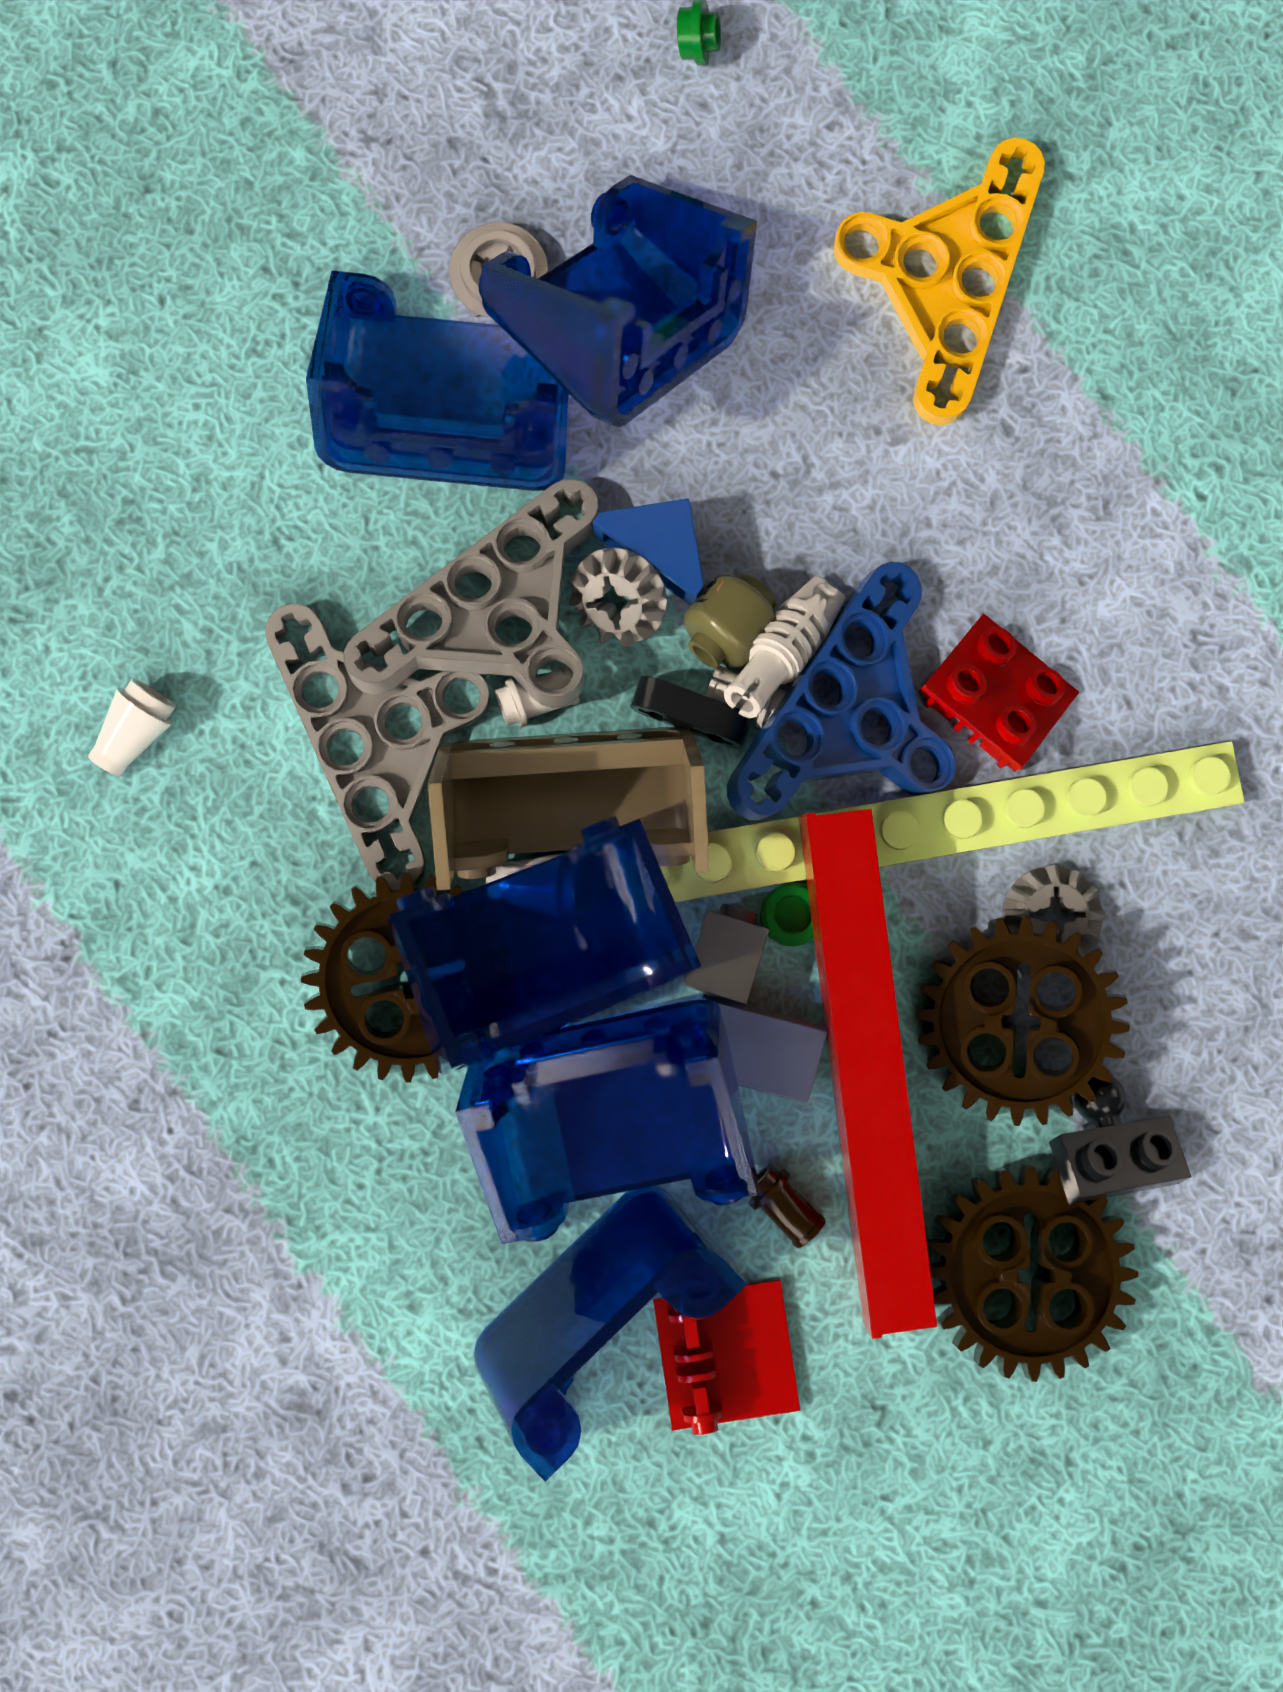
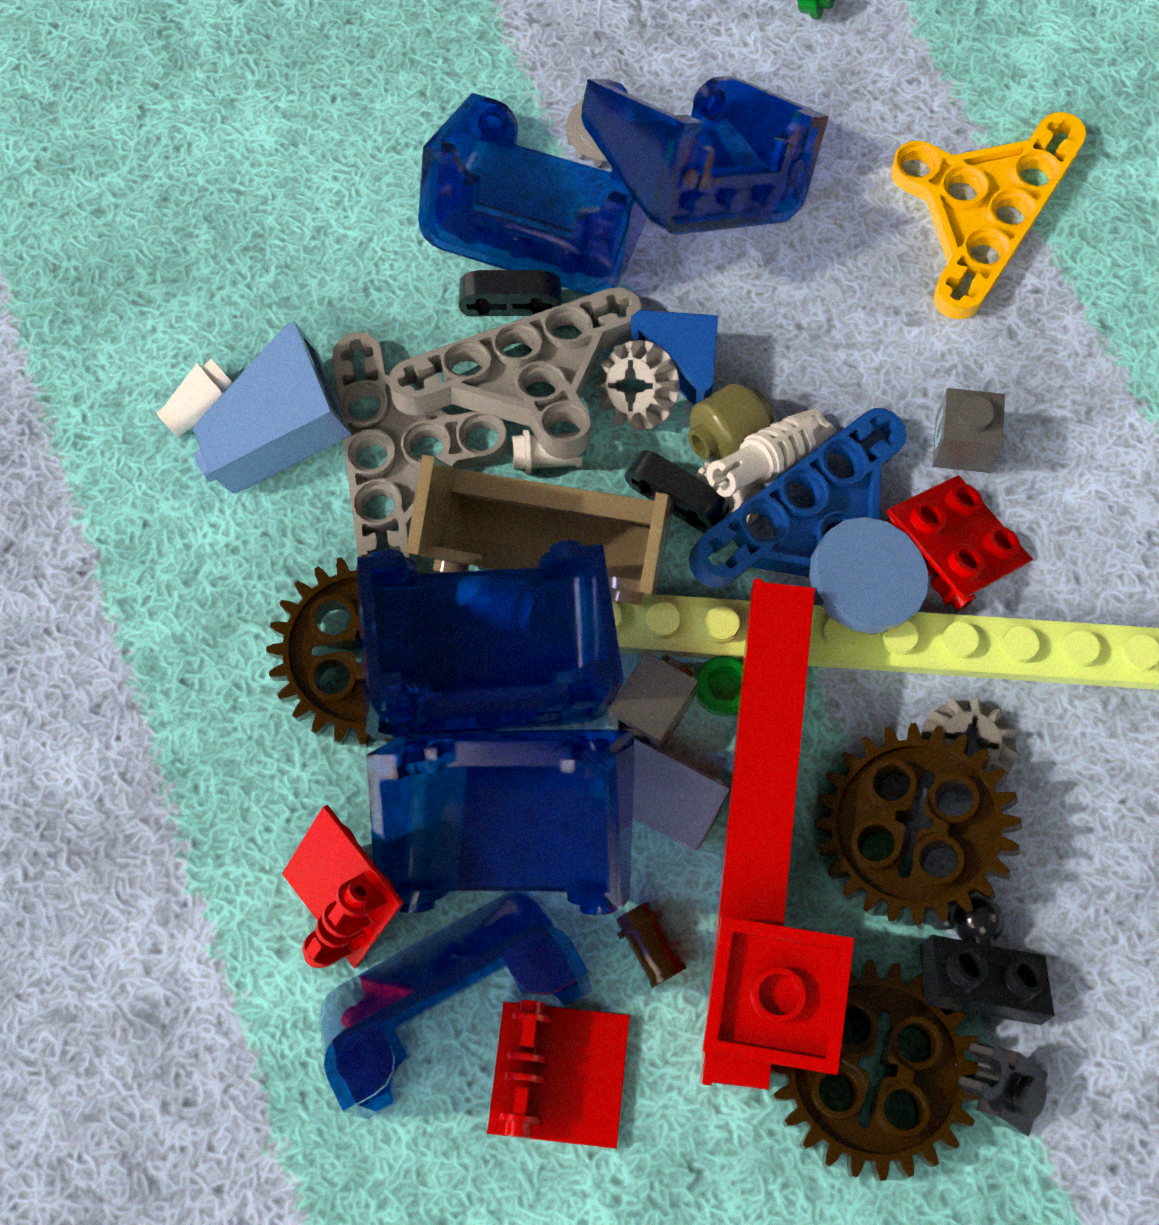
camera: 30 degrees right, 15 degrees down
(223, 732) = (270, 415): none -> medium blue slope
(445, 515) = (508, 292): none -> black beam
(465, 1241) = (342, 893): none -> hinge
(919, 767) = (869, 575): none -> medium blue tile
(929, 1242) = (778, 995): none -> red plate
(987, 567) = (968, 430): none -> dark grey brick
(1160, 1258) = (1008, 1087): none -> black plate

